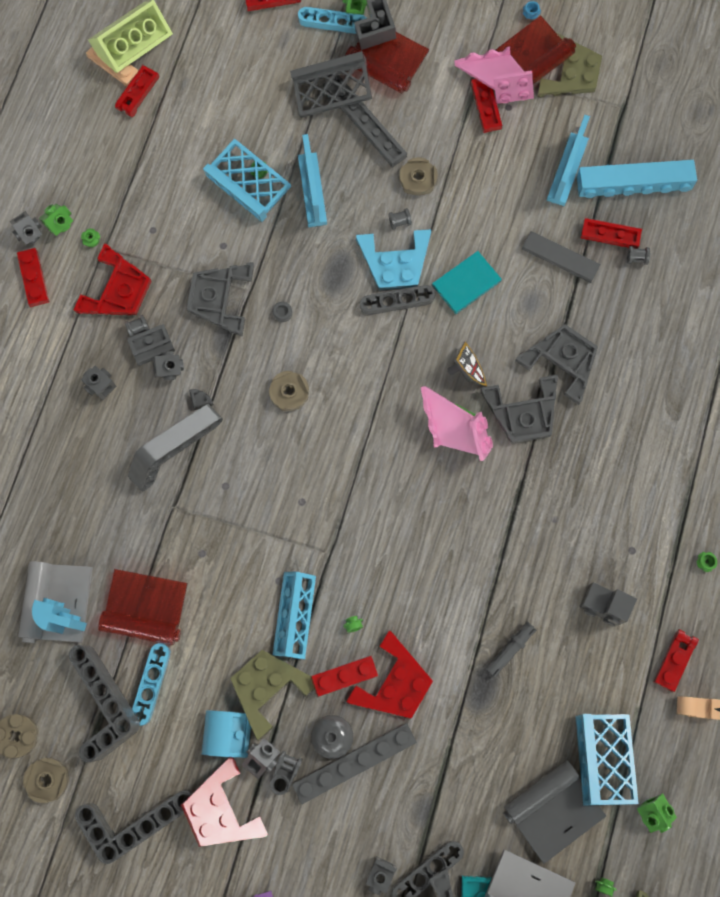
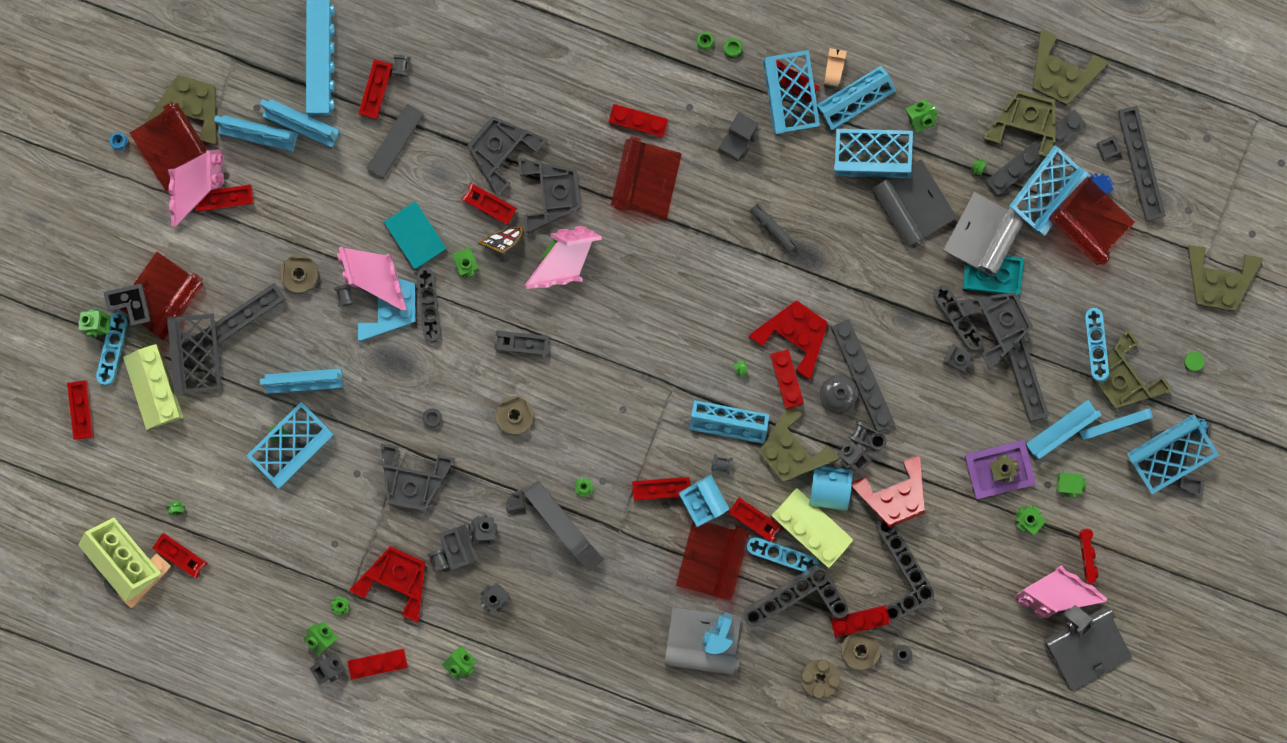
camera: 85 degrees left, 10 degrees up
(30, 353) = (460, 663): none -> bright green brick
(48, 829) = (897, 650): none -> dark grey plate
(76, 779) = (860, 621): none -> red plate
(179, 716) = (812, 528): none -> yellowish green slope
(182, 84) = (175, 508): none -> bright green plate
(188, 650) = (754, 519): none -> red plate
(206, 592) = (704, 500): none -> medium azure brick
(212, 466) = (583, 492): none -> bright green plate
(218, 547) = (659, 488): none -> red plate
(247, 610) = (722, 464): none -> dark grey bush
(298, 54) = (153, 386): none -> yellowish green slope
(364, 394) = (522, 343): none -> dark grey plate
(423, 240) = (372, 273): none -> bright pink piece
(443, 331) = (466, 263): none -> bright green brick
(505, 351) = (489, 204): none -> red plate
(551, 504) = (642, 178): none -> clear red door
(554, 126) = (256, 133): none -> medium azure fence
(611, 496) = (638, 120): none -> red plate
(660, 640) = (774, 94): none -> medium azure fence
(684, 748) = (855, 94): none -> medium azure fence
(703, 592) = (733, 47): none -> bright green tile

